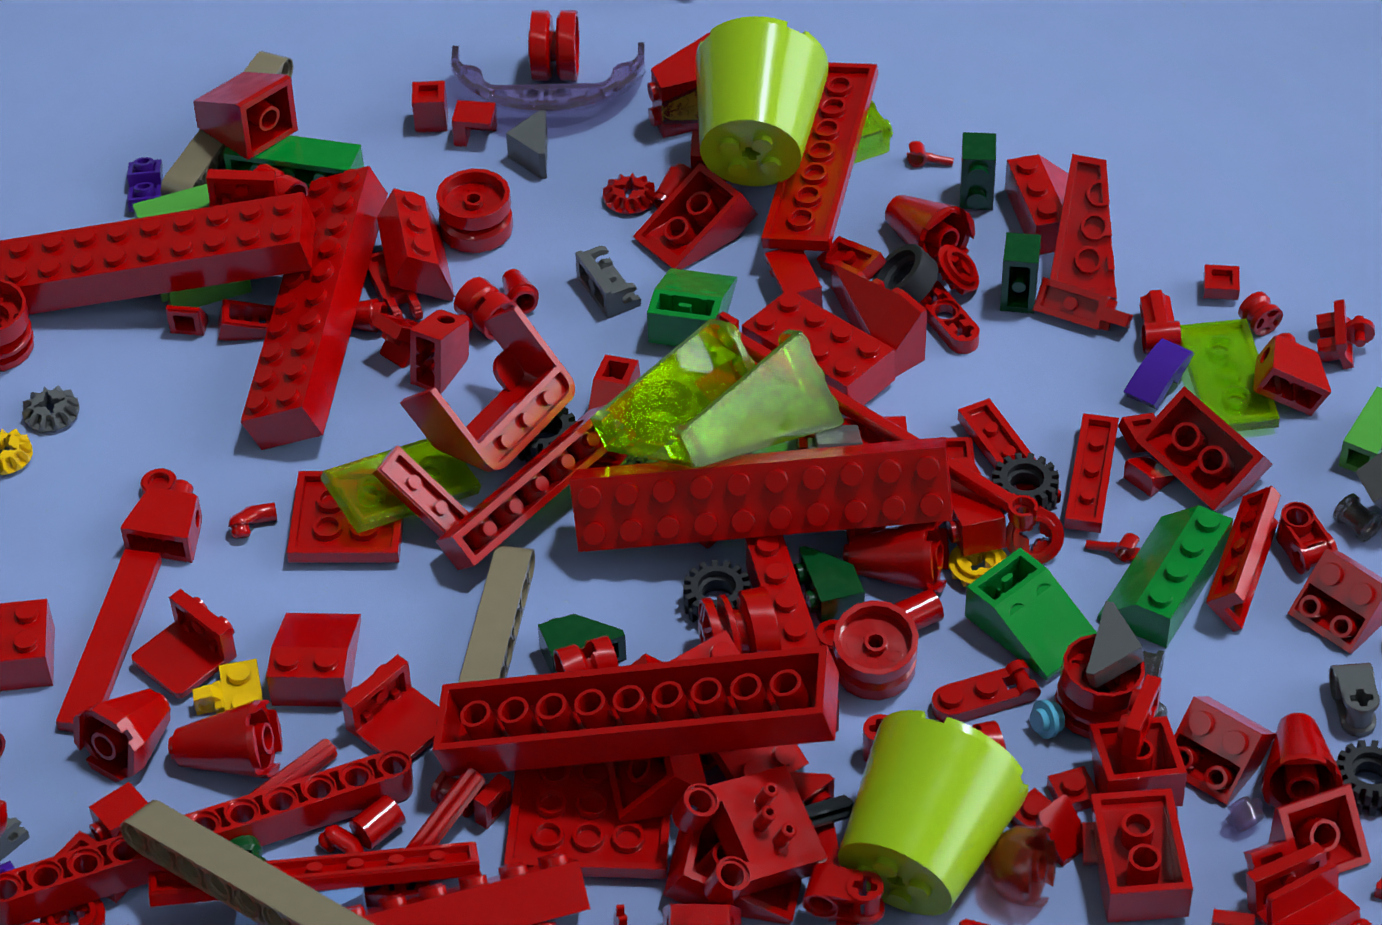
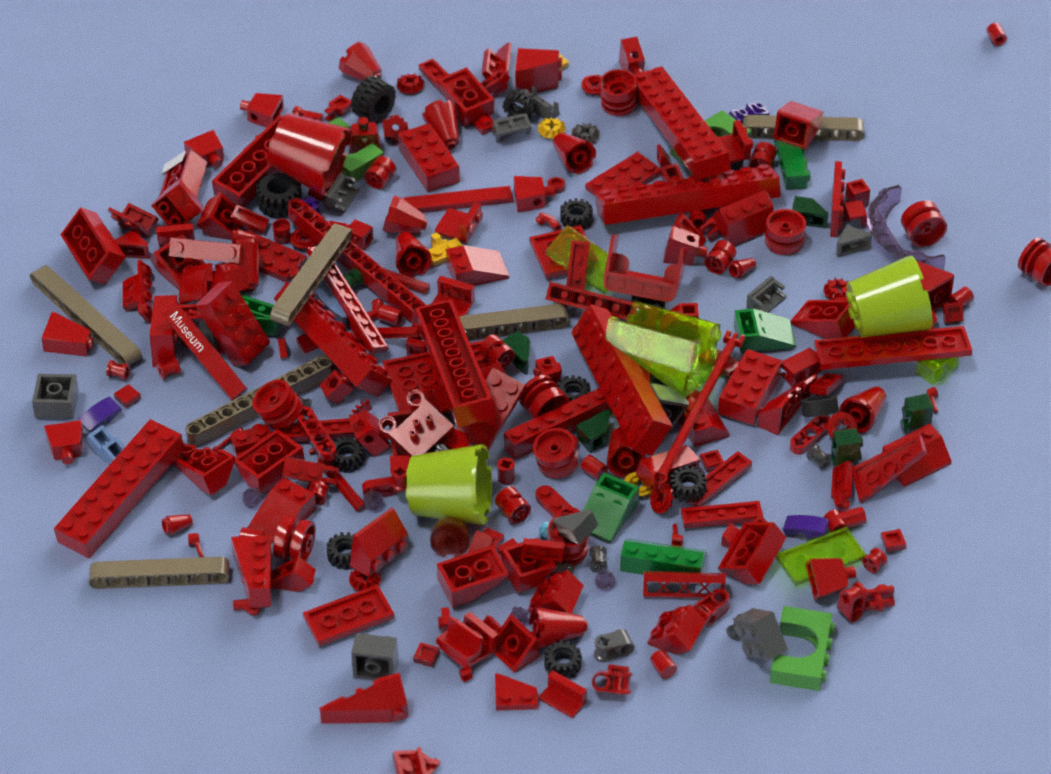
camera: 70 degrees right, 0 degrees up
(98, 430) = (574, 152): none -> red cone
(200, 388) = (628, 173): none -> red plate
(256, 459) = (576, 207): none -> black tyre
(430, 170) = (812, 212): none -> dark green slope
(437, 127) = (837, 199): none -> red plate
(655, 612) = (549, 367): none -> red brick
(995, 316) = (819, 457): none -> clear smoke bush
(1191, 670) = (604, 579): none -> clear purple plate
(1354, 357) = (852, 602): none -> red piece

